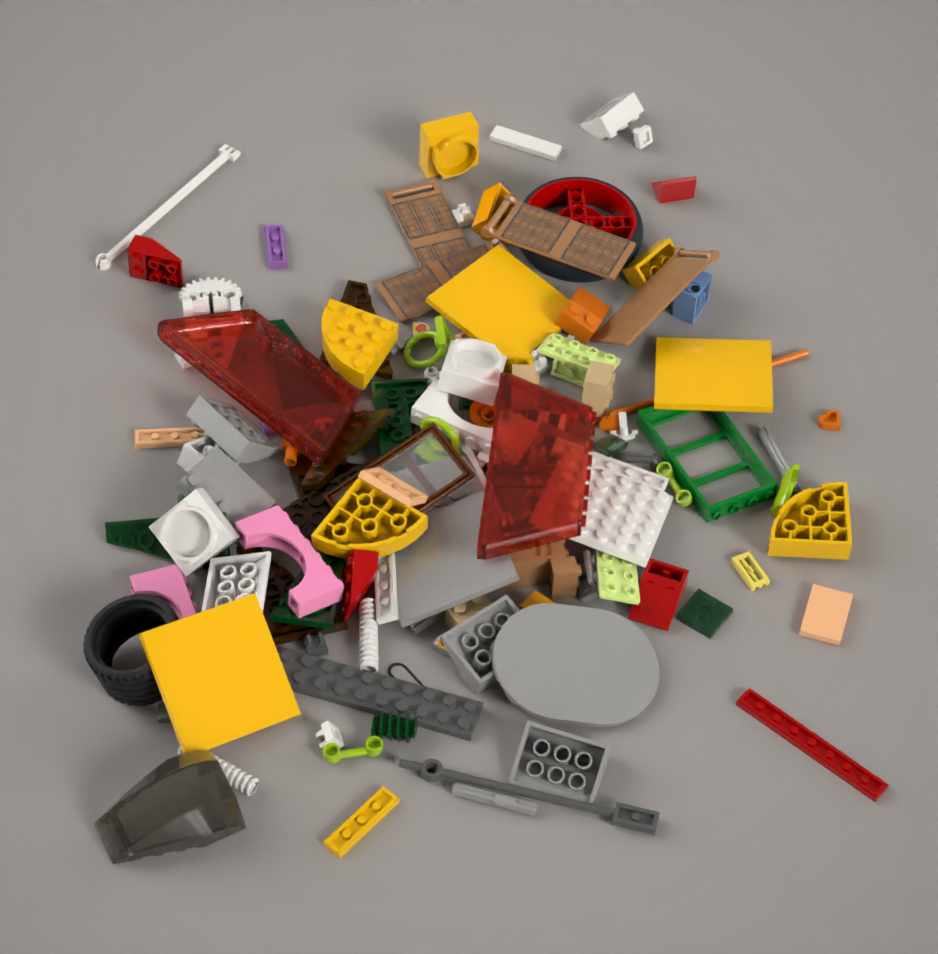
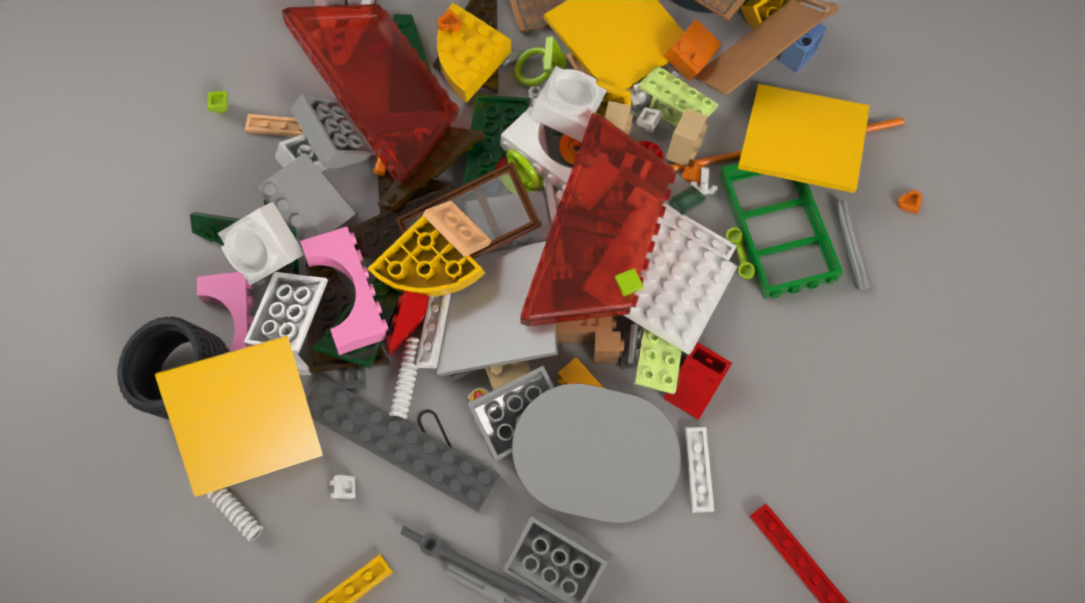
camera: 15 degrees right, 20 degrees up
(101, 421) = (217, 101): none -> lime tile
(172, 809) = (170, 551): clear smoke windscreen -> none
(333, 313) = (449, 21): none -> orange tile
(373, 748) = (340, 508): lime bar -> none
(394, 727) = (404, 489): dark green piece -> none
(418, 327) = (535, 41): tile -> none
(555, 380) = (649, 119): none -> white tile
(575, 501) = (628, 282): none -> lime tile
(653, 460) = (727, 222): dark grey bar -> none
(678, 672) = (699, 470): none -> white tile
(704, 613) = (739, 405): clear green tile -> none
(747, 573) = (800, 379): light yellow tile -> none
(785, 489) = (848, 281): lime slope -> none
(814, 524) = (871, 324): yellow brick -> none
(826, 614) = (861, 427): light nougat tile -> none

